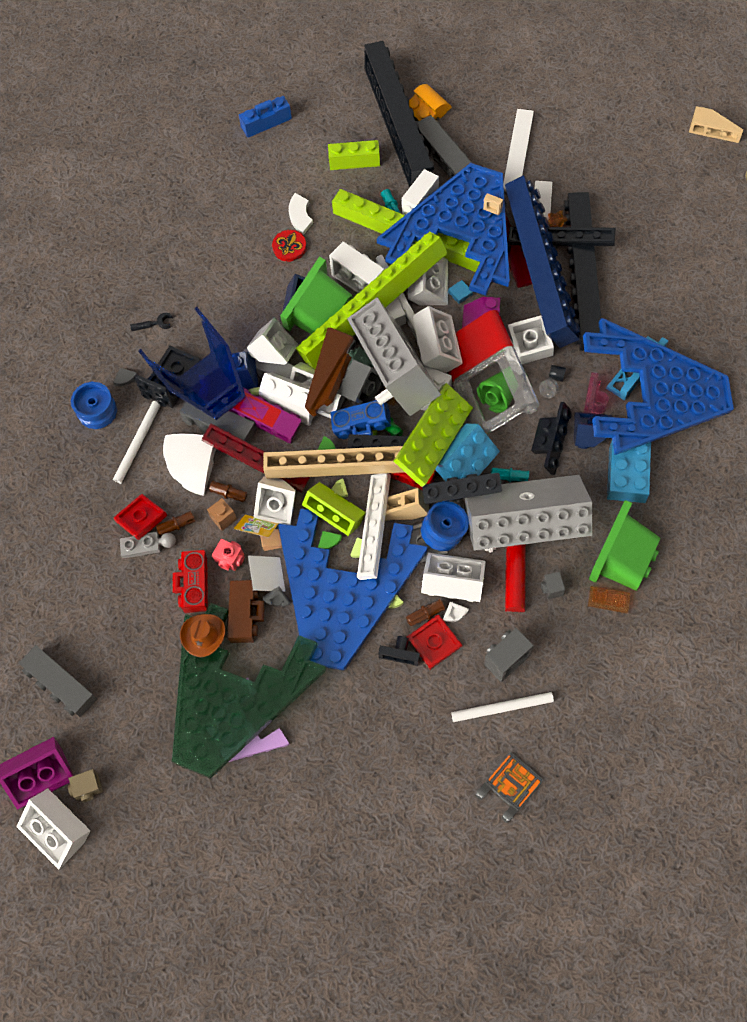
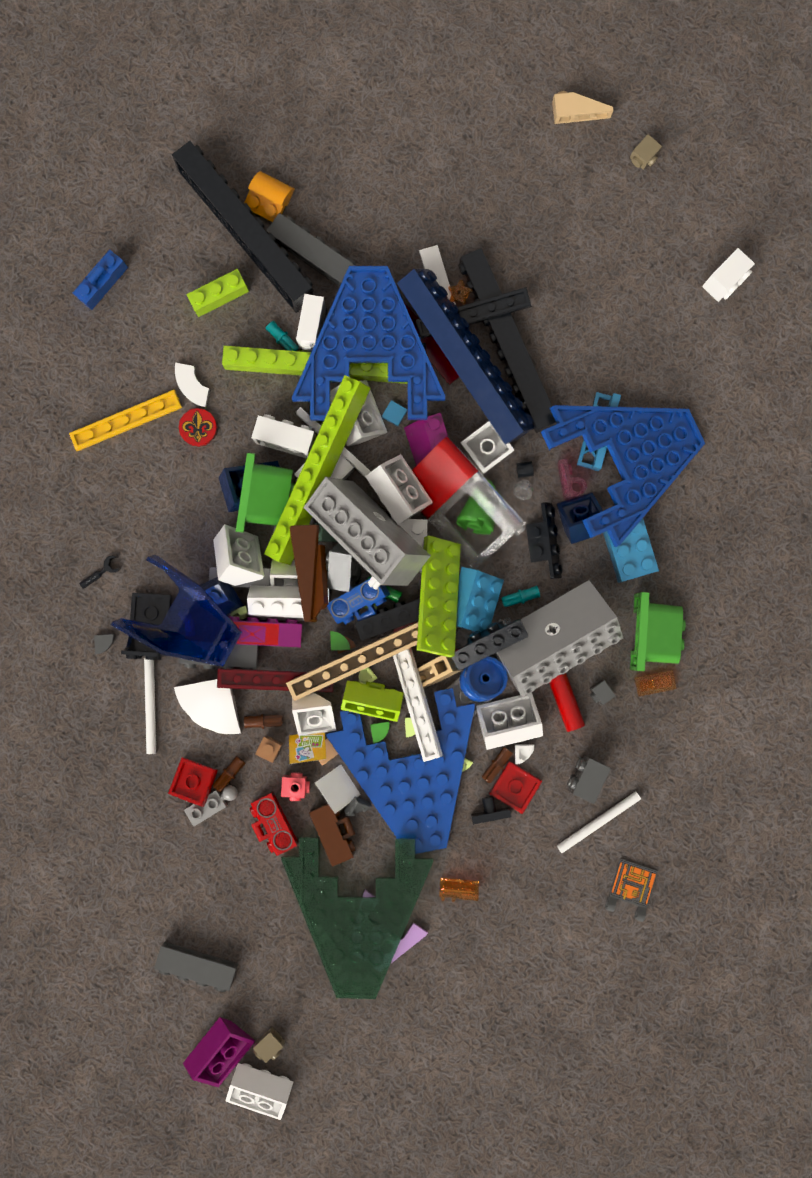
camera: 25 degrees left, 20 degrees up
(94, 405) = (78, 689): blue wheel -> none
(202, 634) = (308, 873): dark orange hat -> none
(233, 220) = (125, 420): none -> yellow tile
(335, 711) = (458, 889): none -> clear orange plate
(493, 204) = (394, 314): tan tile -> none
(518, 146) = (386, 217): white tile -> none

